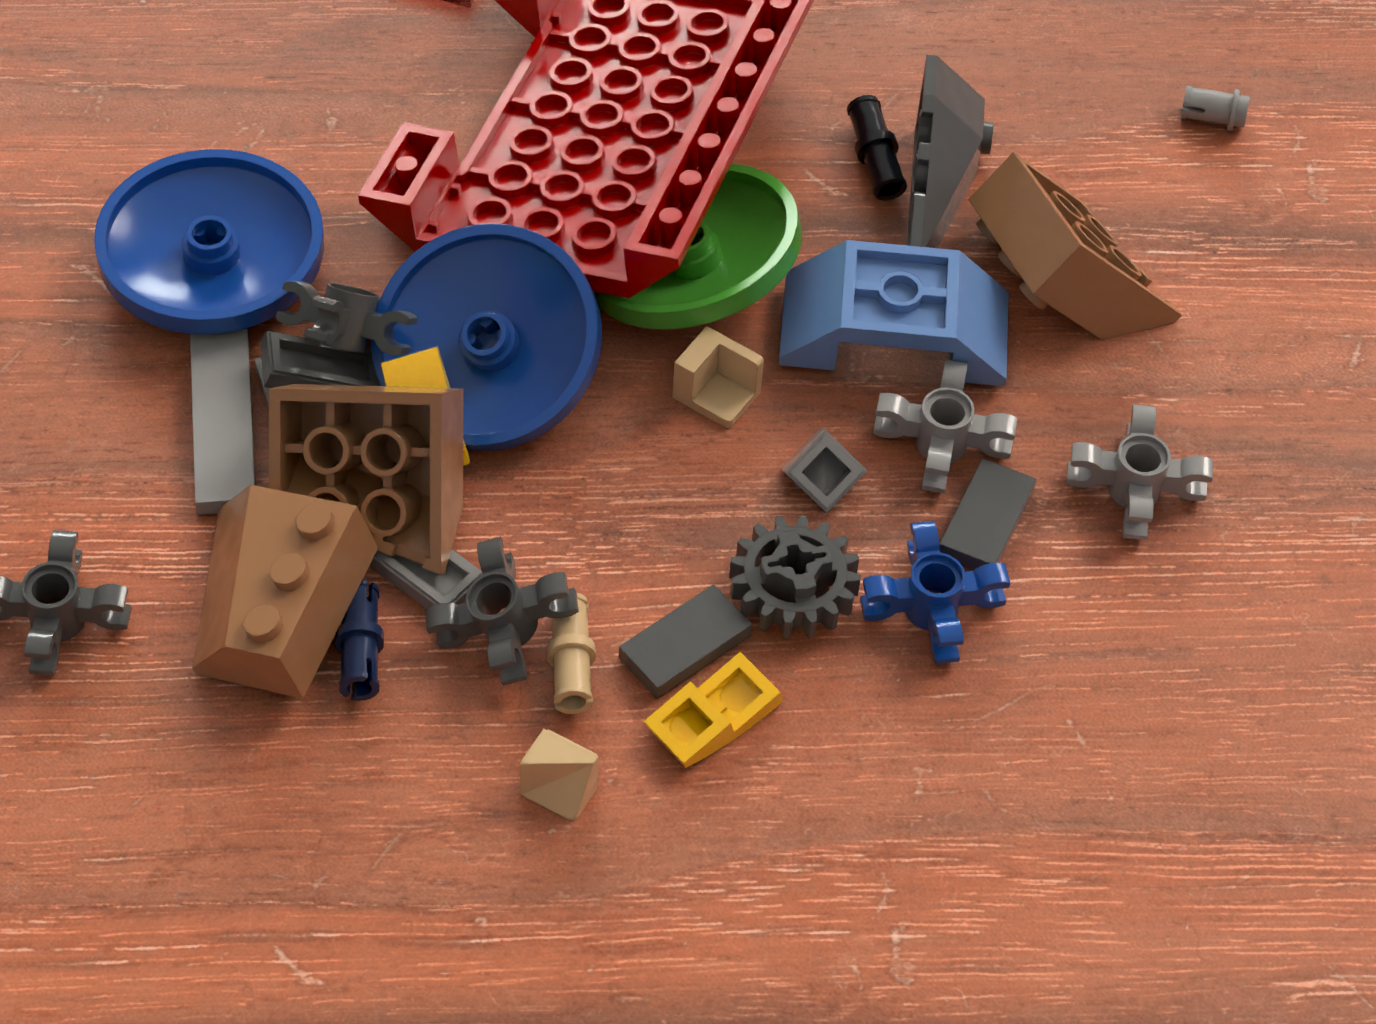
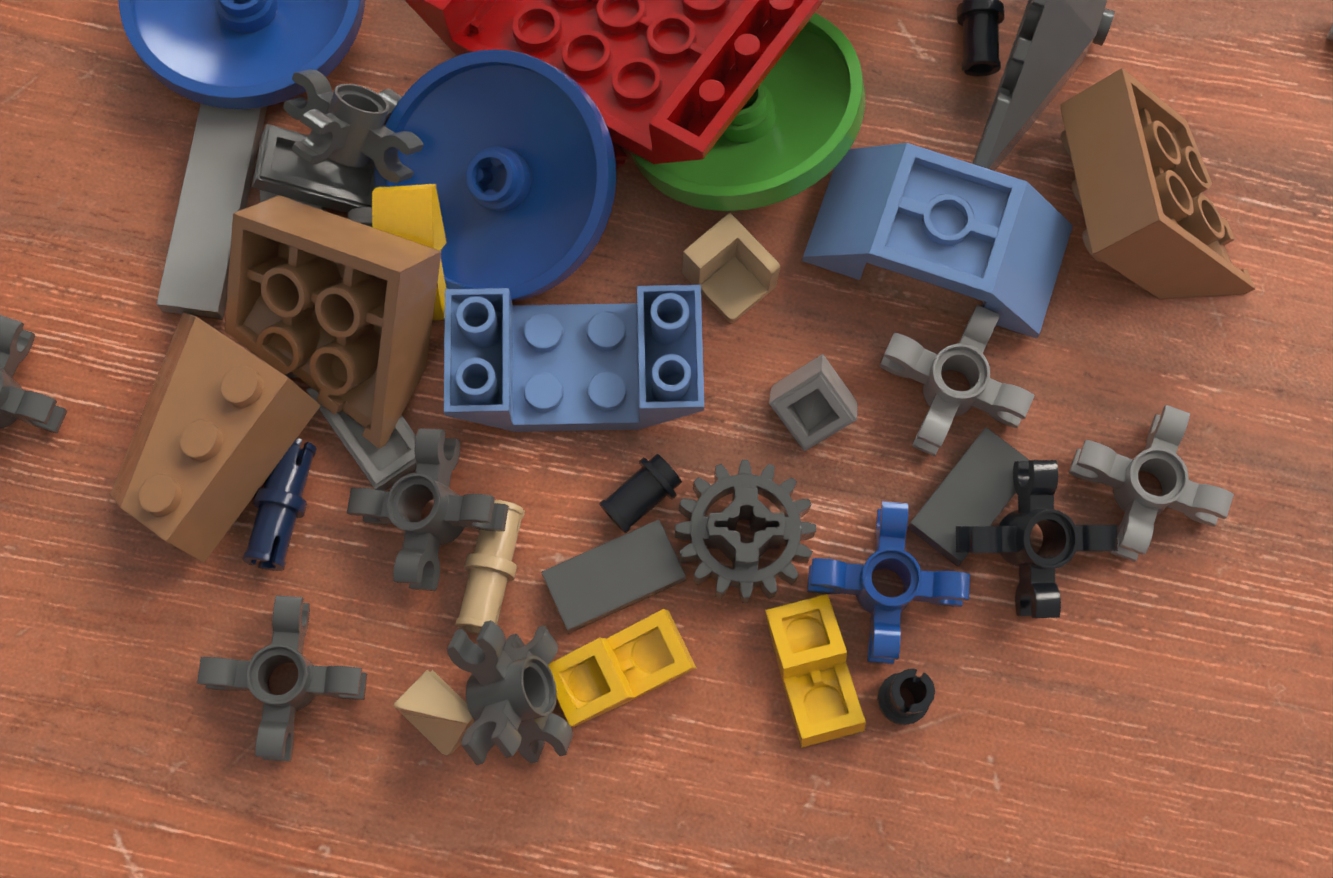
camera: 15 degrees right, 20 degrees up
(409, 798) = (276, 728): none -> dark grey pin
(605, 478) = (573, 361): none -> medium blue slope
(625, 731) = (510, 693): none -> dark grey pin
(699, 557) = (641, 492): none -> black pin
(887, 677) = (814, 670): none -> yellow slope
(978, 679) = (892, 703): none -> black pin
(1045, 545) = (1035, 486): none -> black pin

